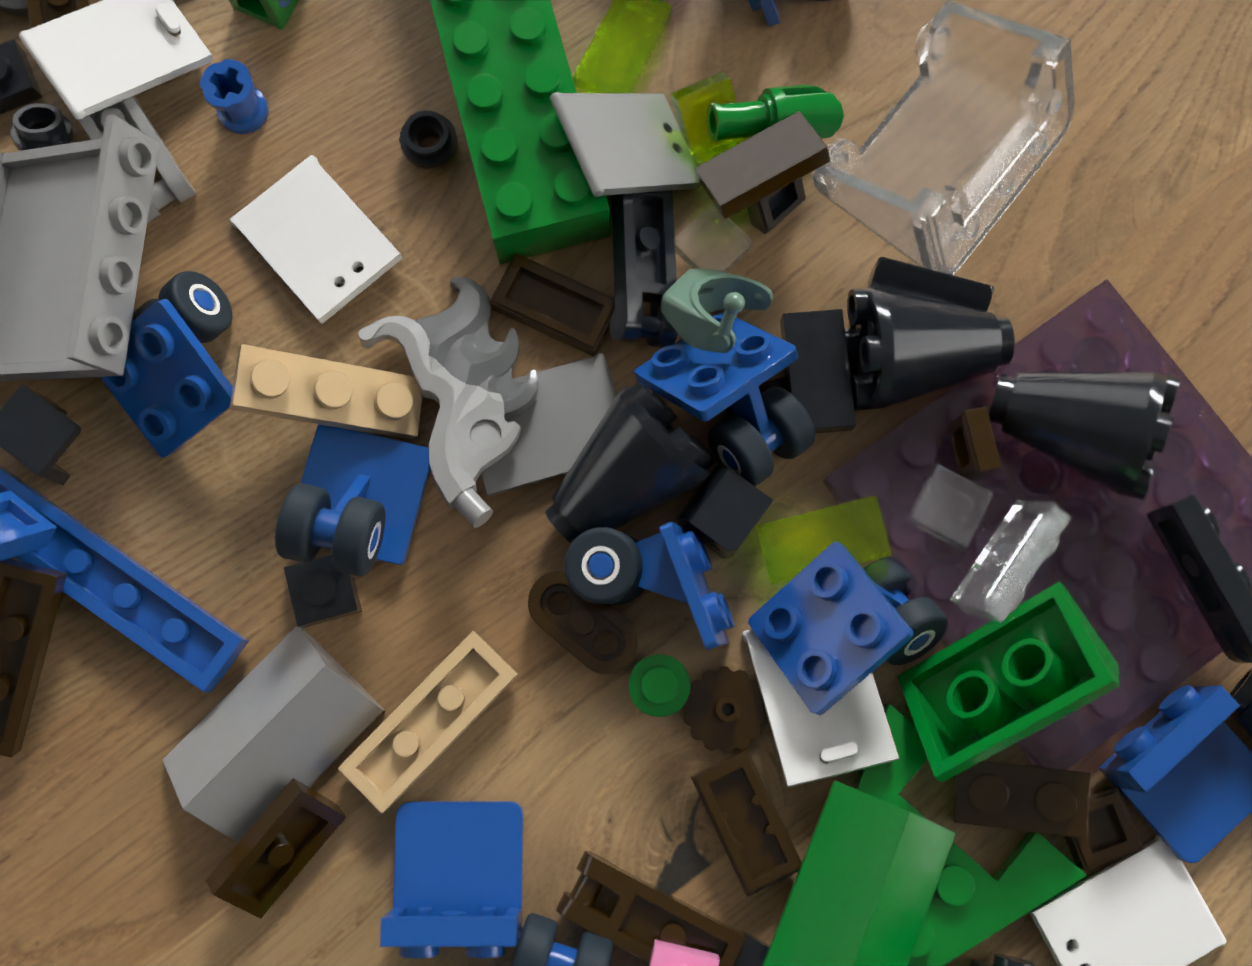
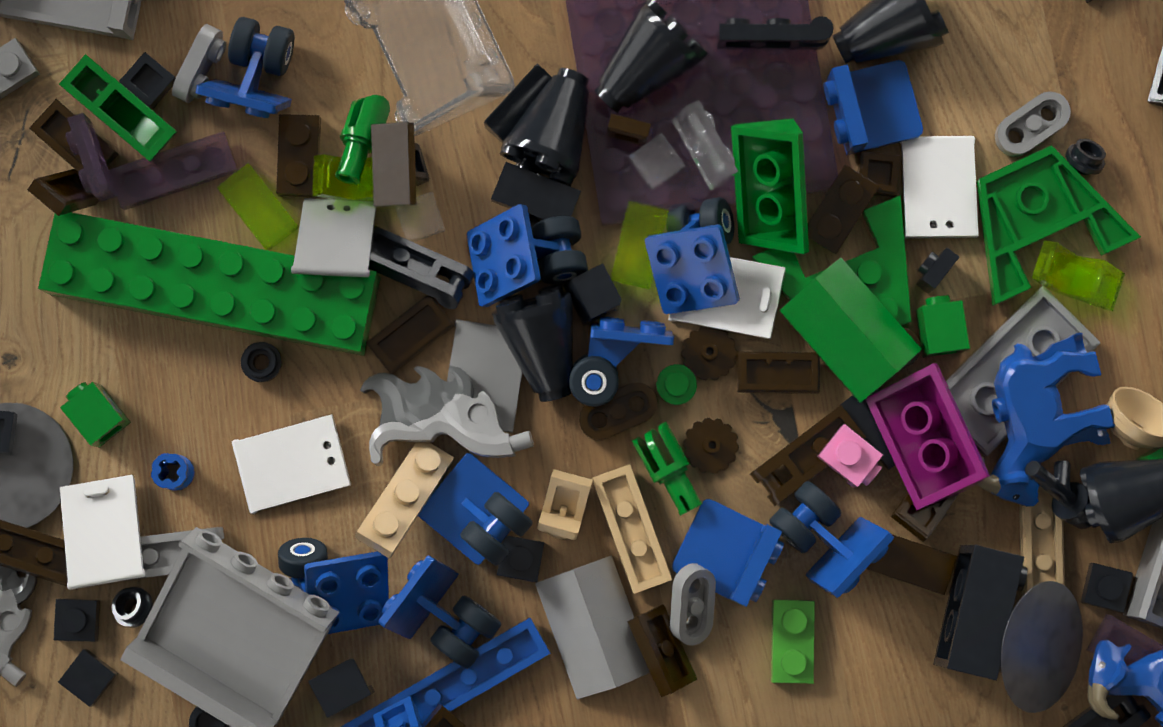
camera: 65 degrees left, 5 degrees up
(203, 481) = (420, 597): none -> blue plate
(358, 860) = (692, 600): none -> light grey plate
(417, 612) = (564, 505): none -> tan bracket
(539, 729) = (668, 466): none -> green arm
(599, 775) = (710, 445): none -> dark brown piece
(709, 290) = (450, 238): sand green helmet -> none
(733, 48) = (297, 146): none -> dark brown plate

